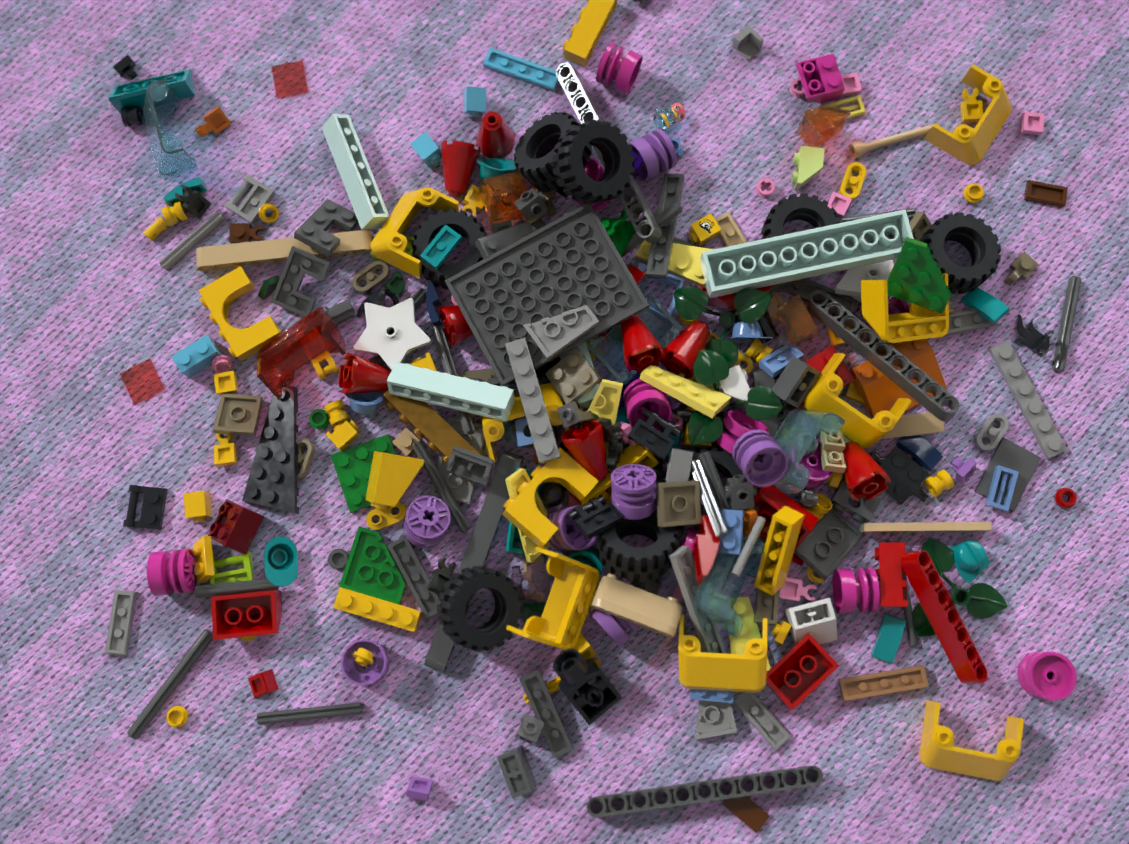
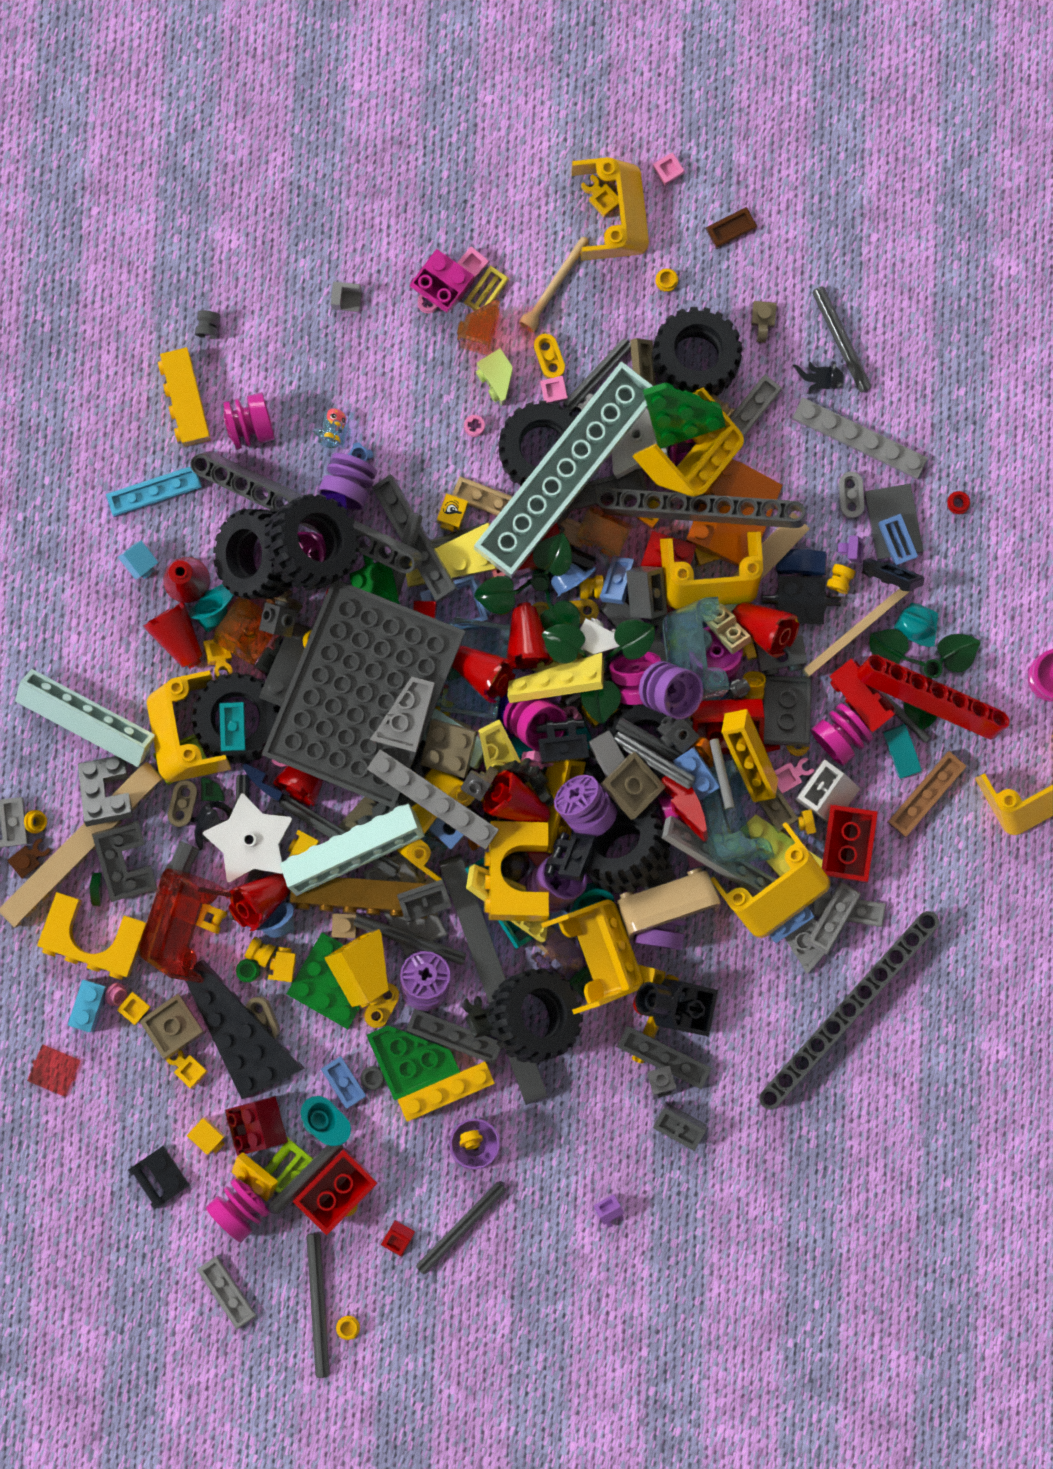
camera: 50 degrees left, 5 degrees up
(317, 545) = (343, 1082): none -> medium blue plate
(427, 150) = (134, 642): medium azure brick -> none
(746, 715) = (833, 918): none -> light grey tile
(747, 812) = (898, 997): reddish brown tile -> none
(979, 507) = (892, 574): none -> black hinge
(986, 305) = (757, 381): teal slope -> none

